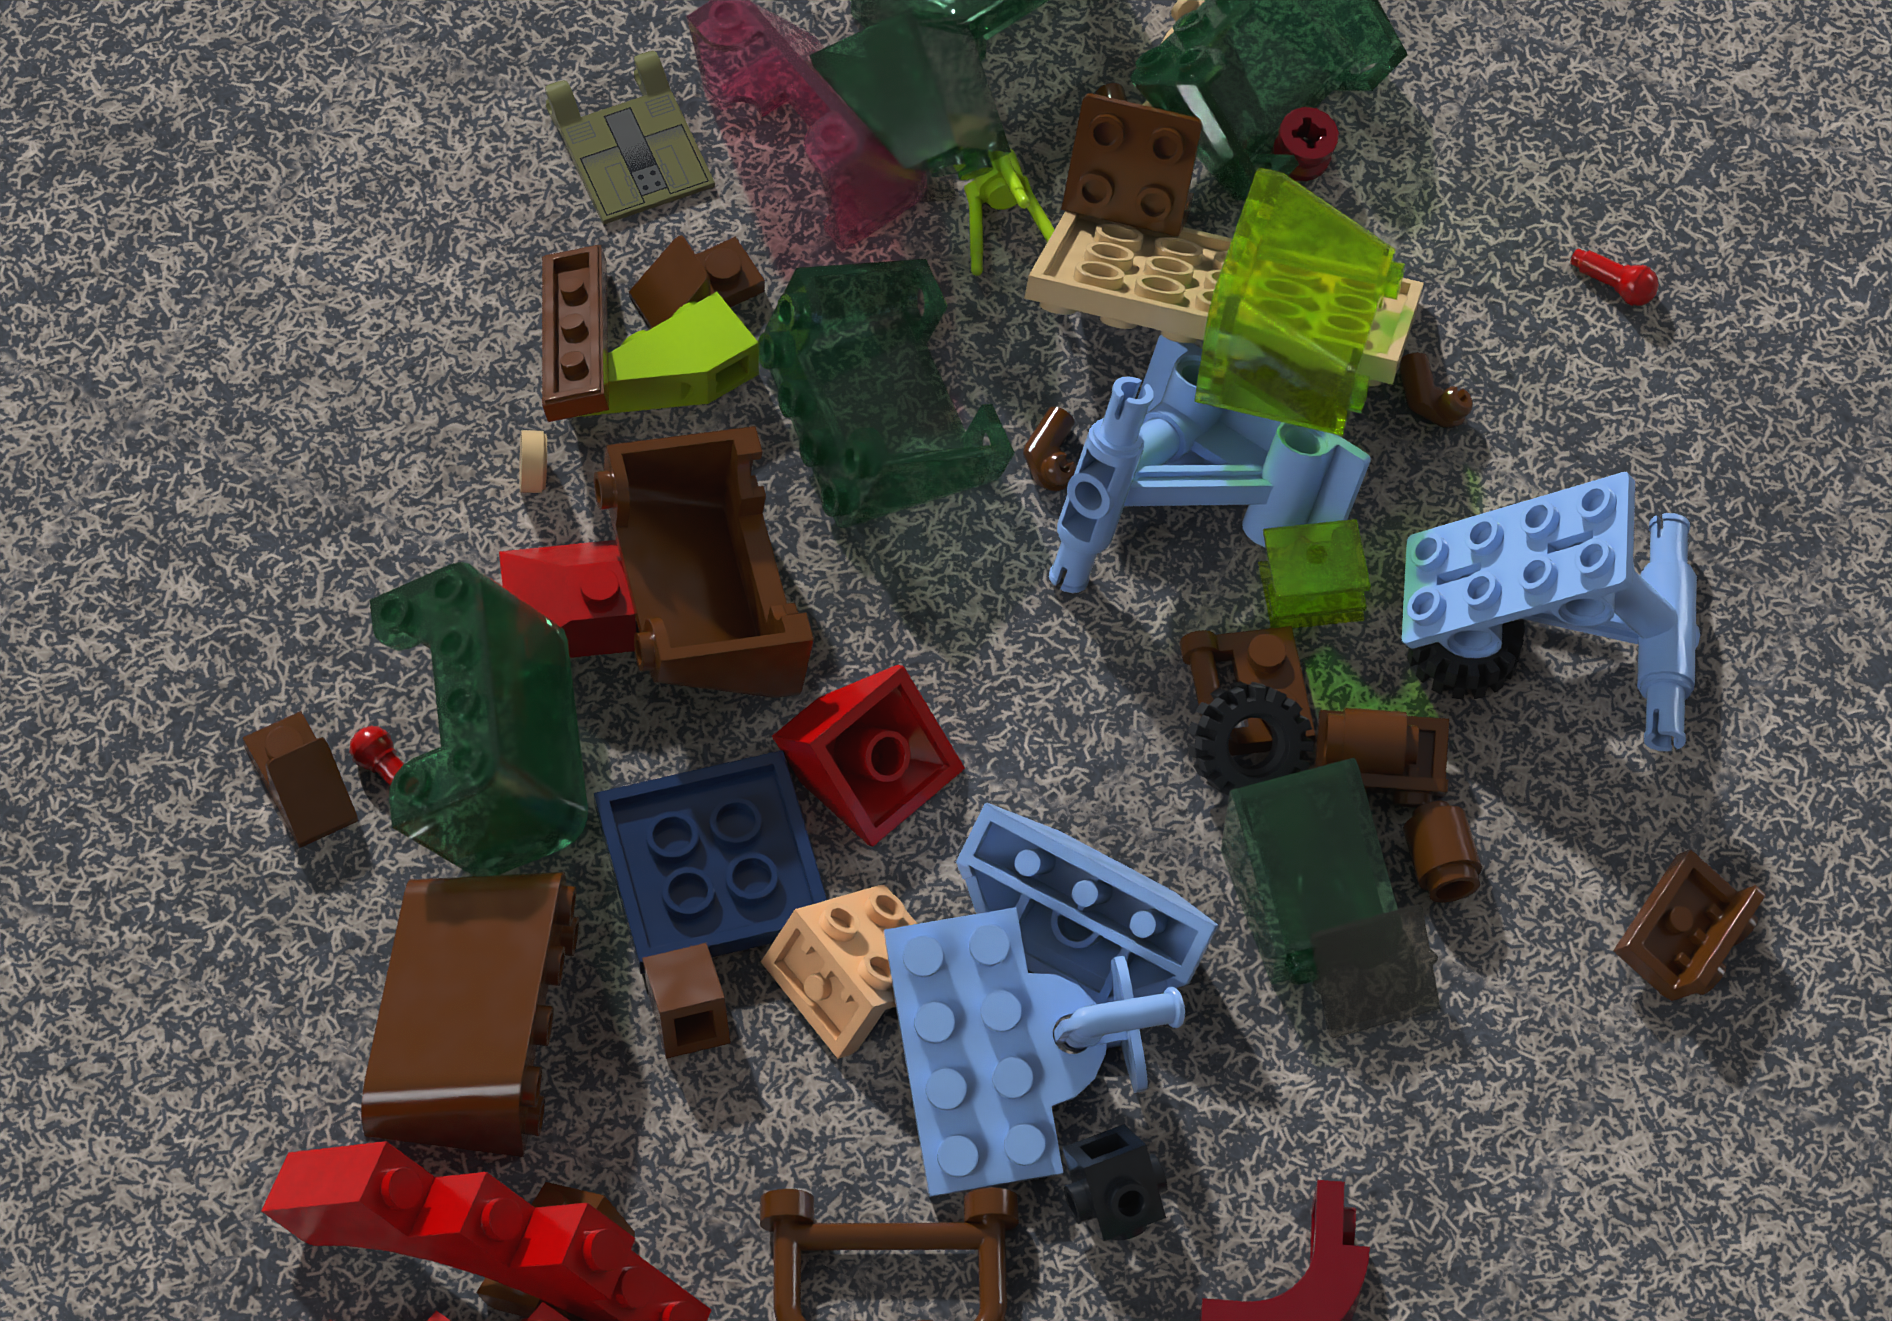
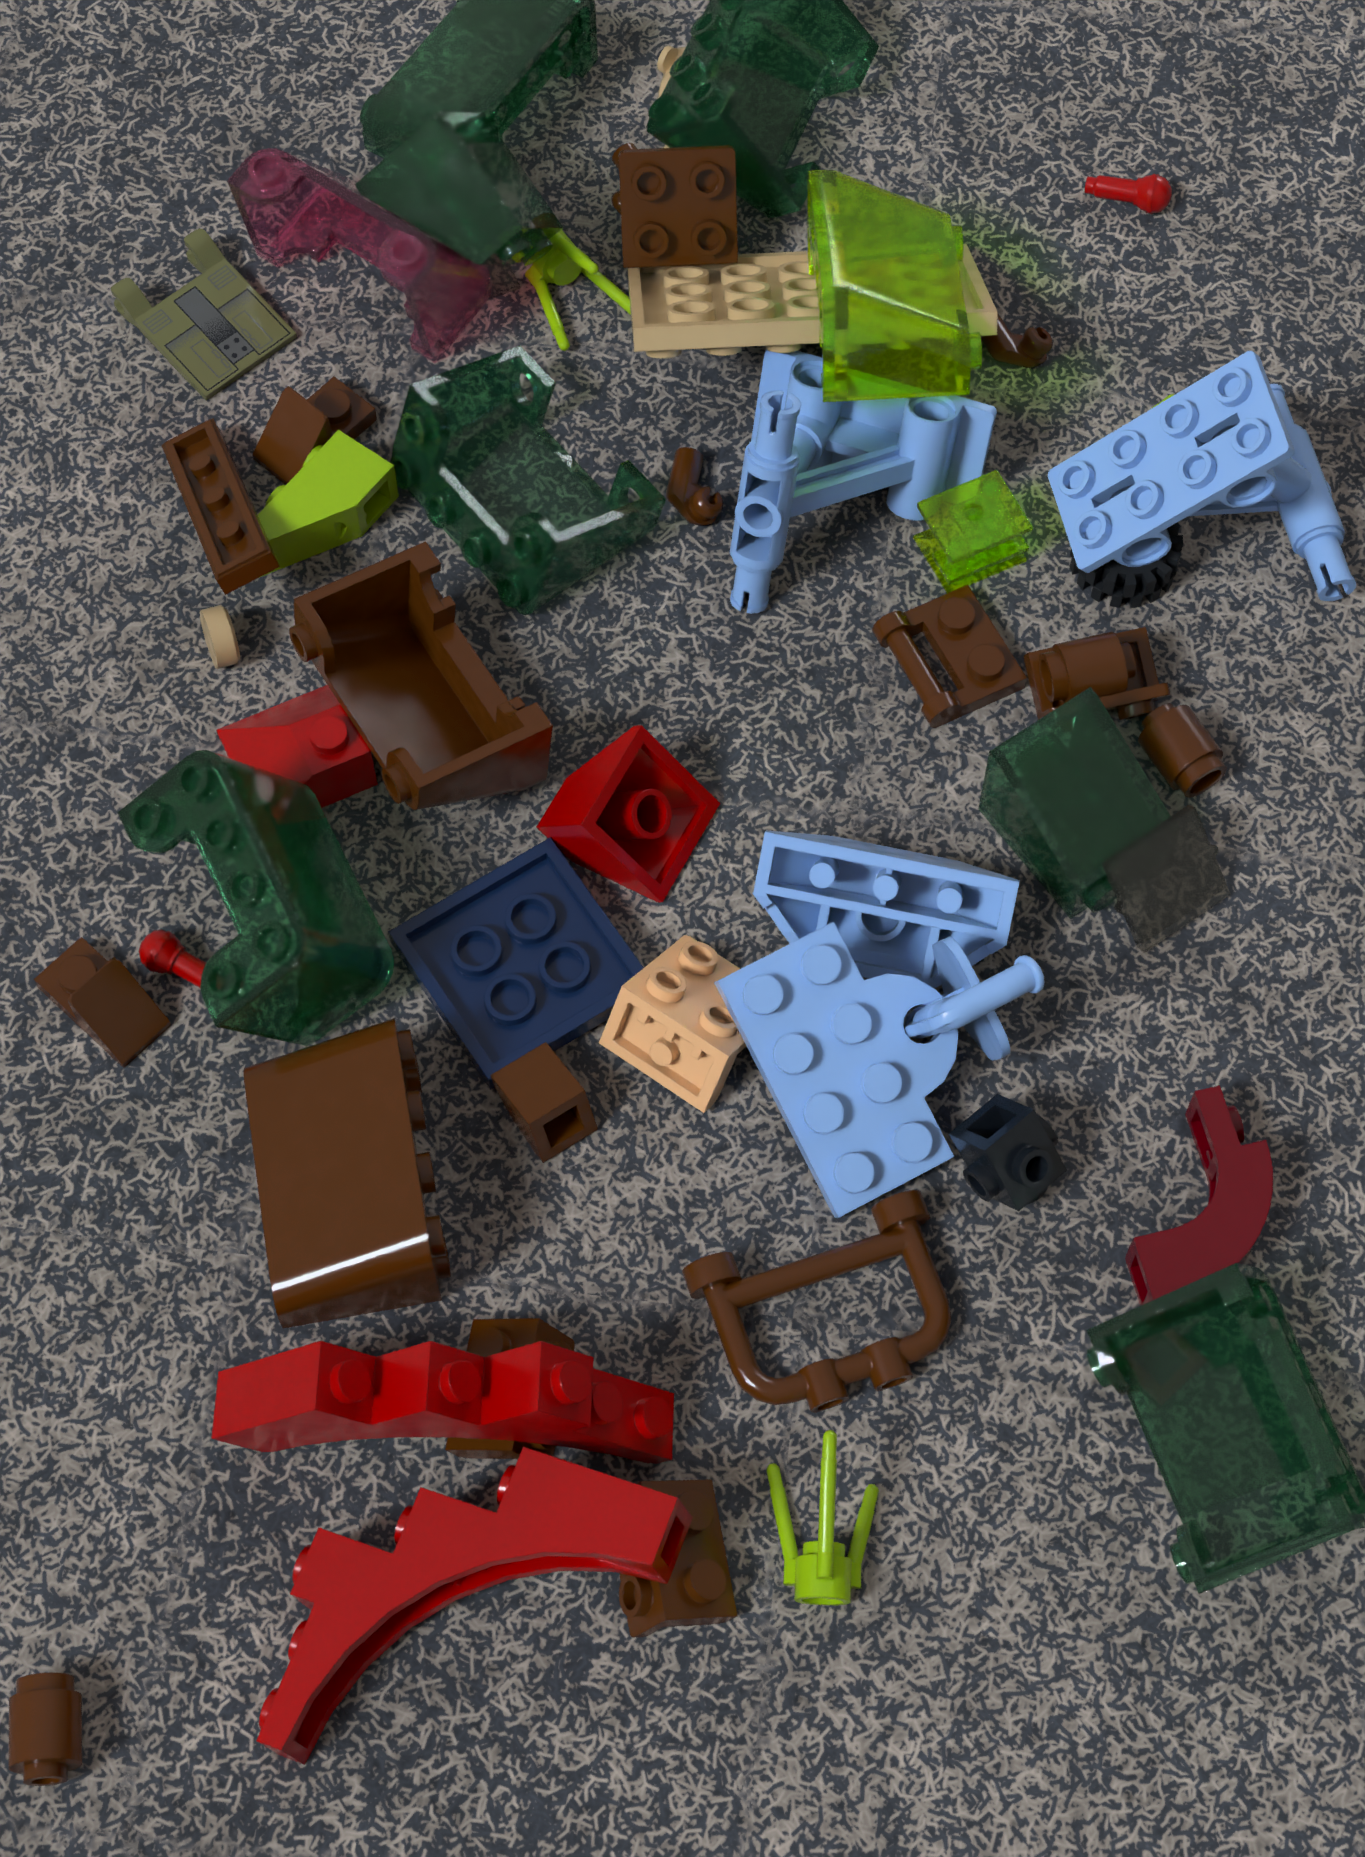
camera: 15 degrees left, 5 degrees up
(1231, 708) = (946, 691): black tyre -> none
(1290, 141) = (820, 132): dark red wheel -> none

